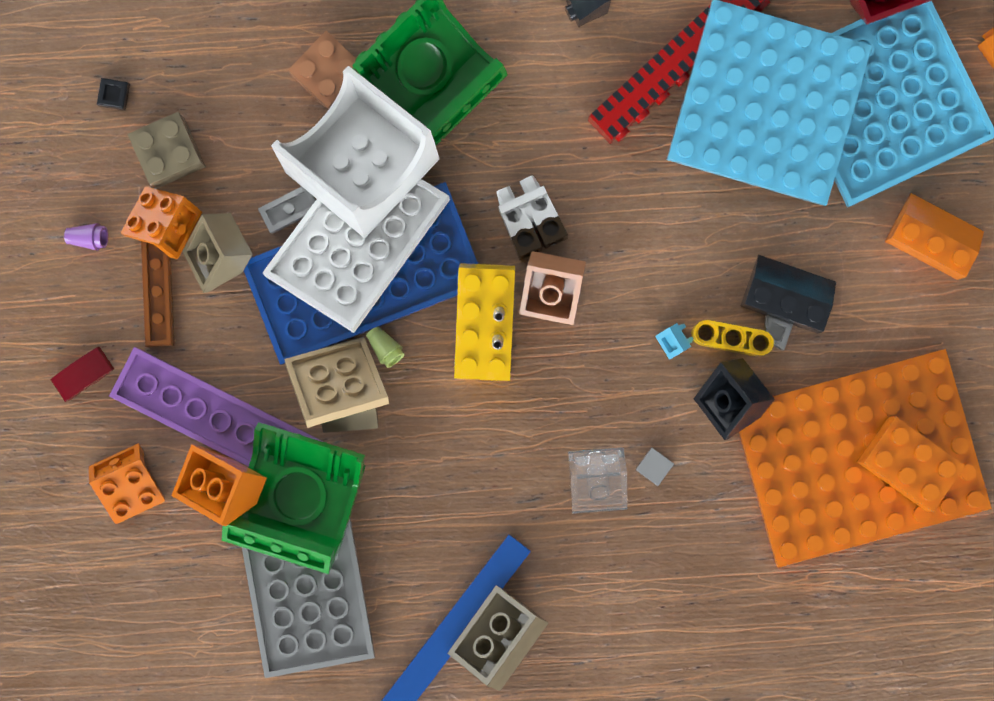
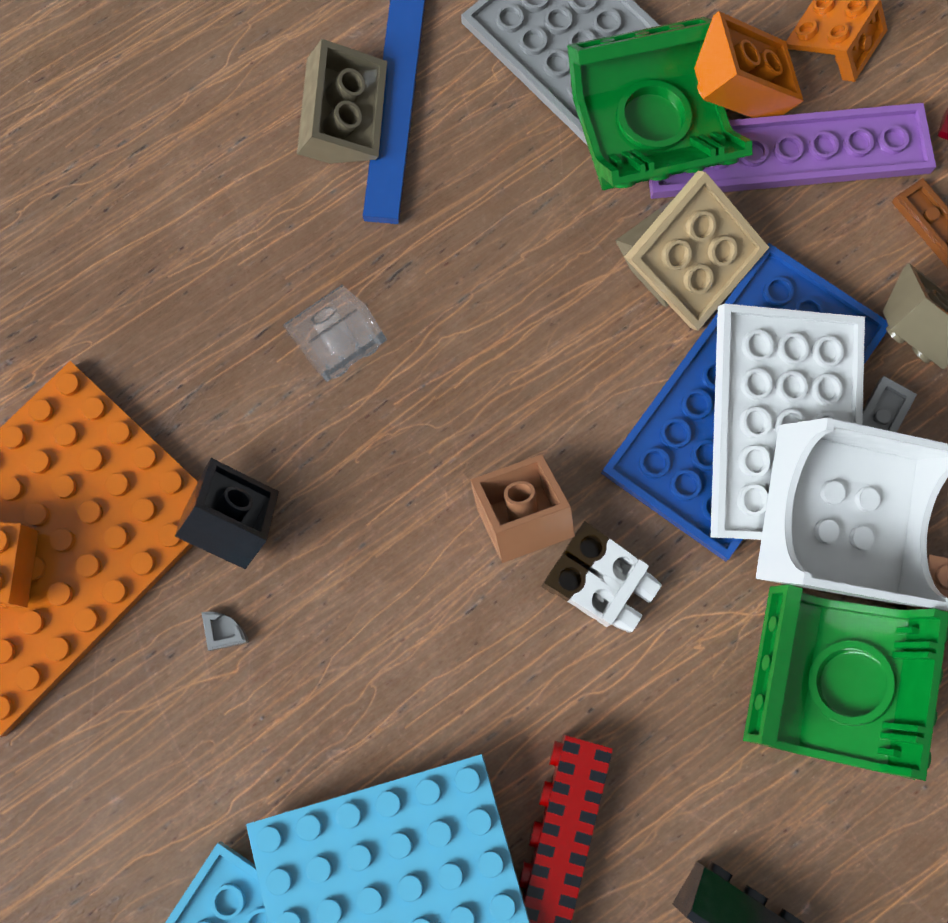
camera: 145 degrees right, 10 degrees down
(385, 347) = (667, 332): yellowish green cone -> none
(484, 321) = (576, 422): yellow piece -> none
(654, 466) = (278, 387): light grey tile -> none
(673, 340) = (340, 540): medium azure tile -> none
(745, 334) = (253, 586): yellow beam -> none
(789, 294) = (231, 683): black slope -> none
(936, 237) = (83, 874): orange slope -> none

